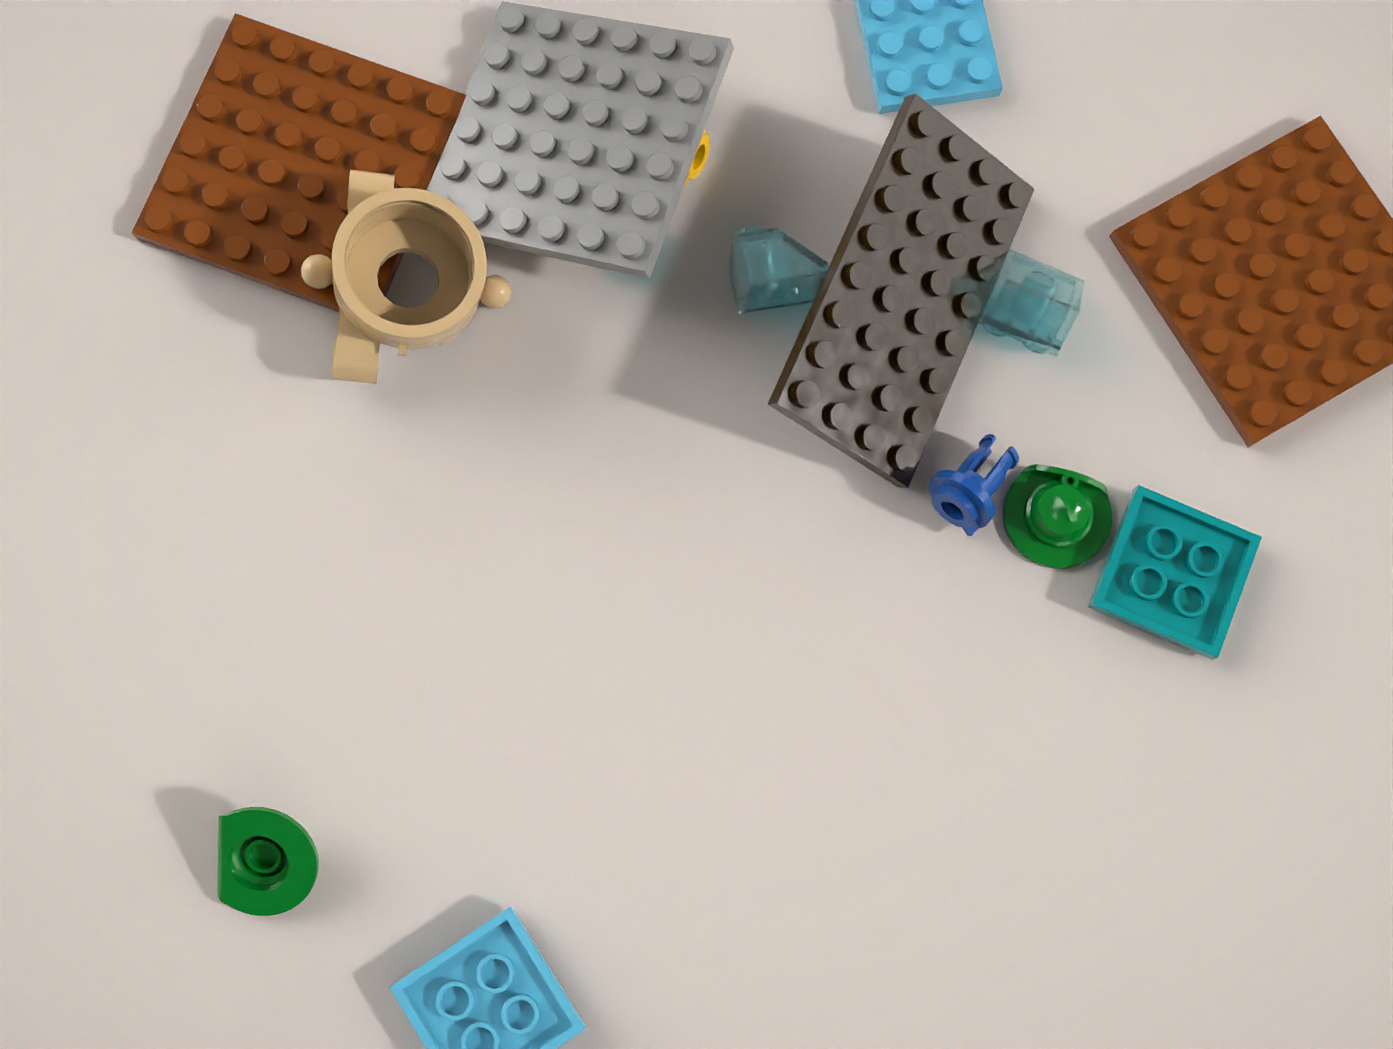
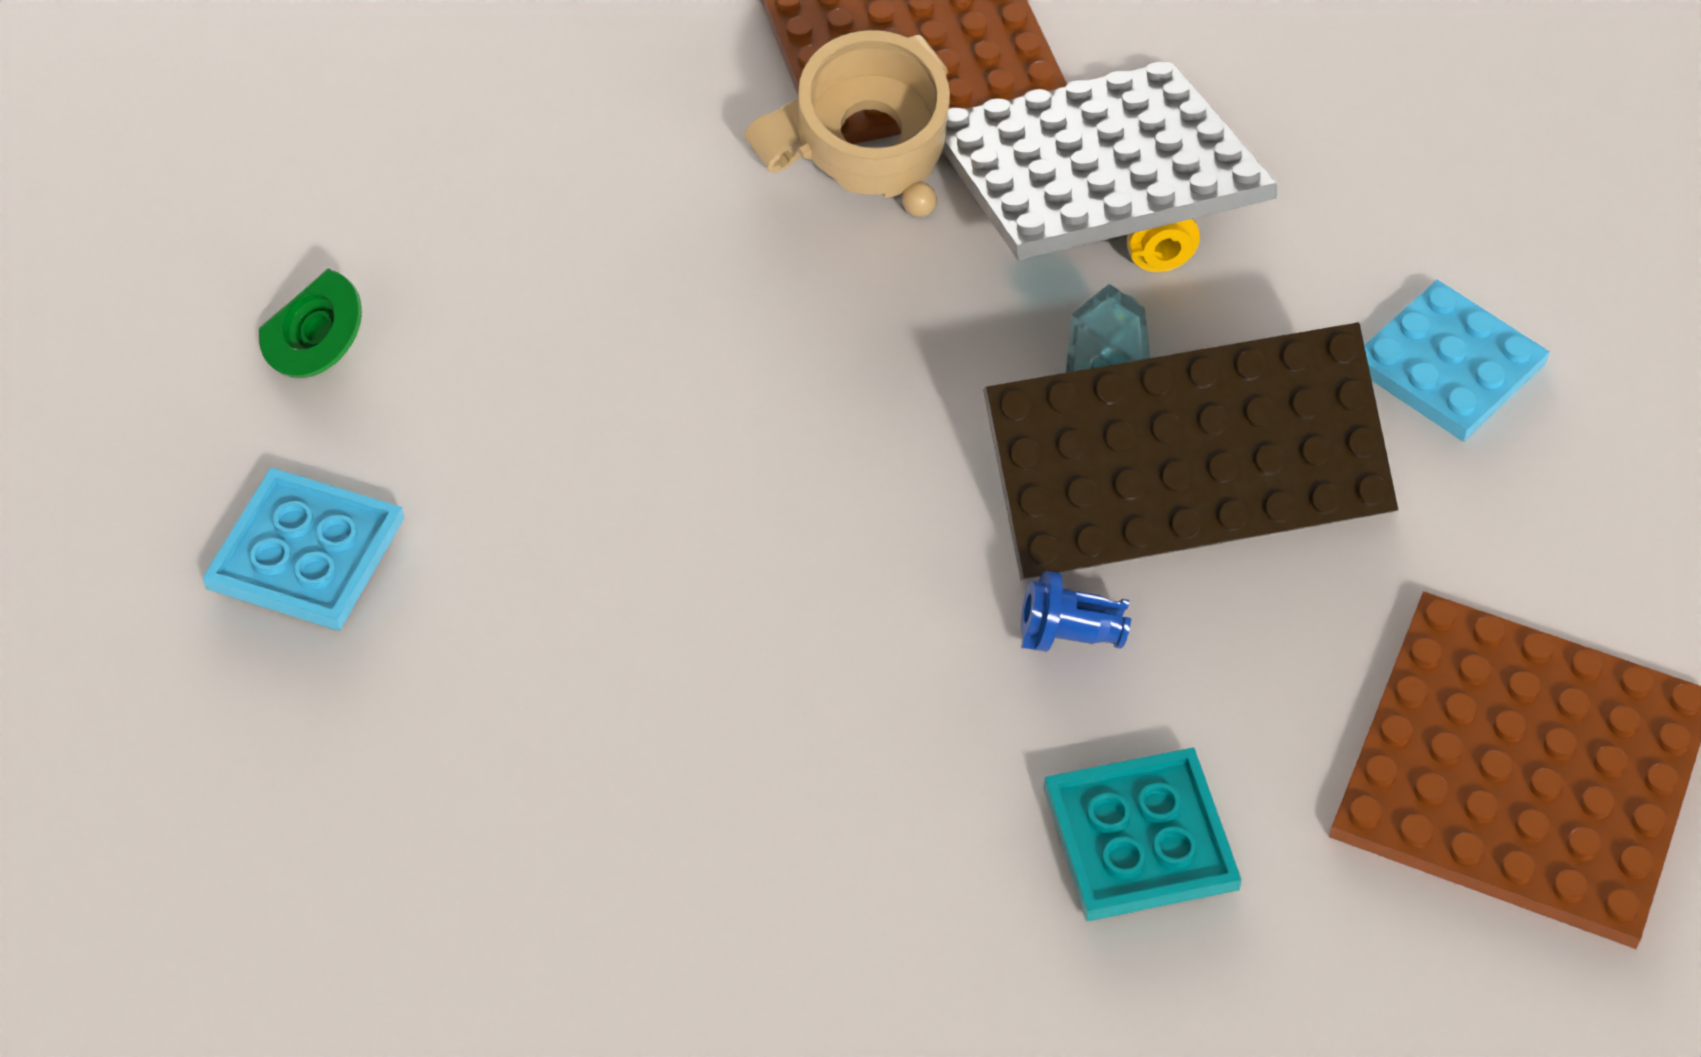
camera: 60 degrees right, 25 degrees down
(1031, 303) = (1285, 564): clear light blue slope -> none
(1057, 516) = (1108, 714): green hat -> none

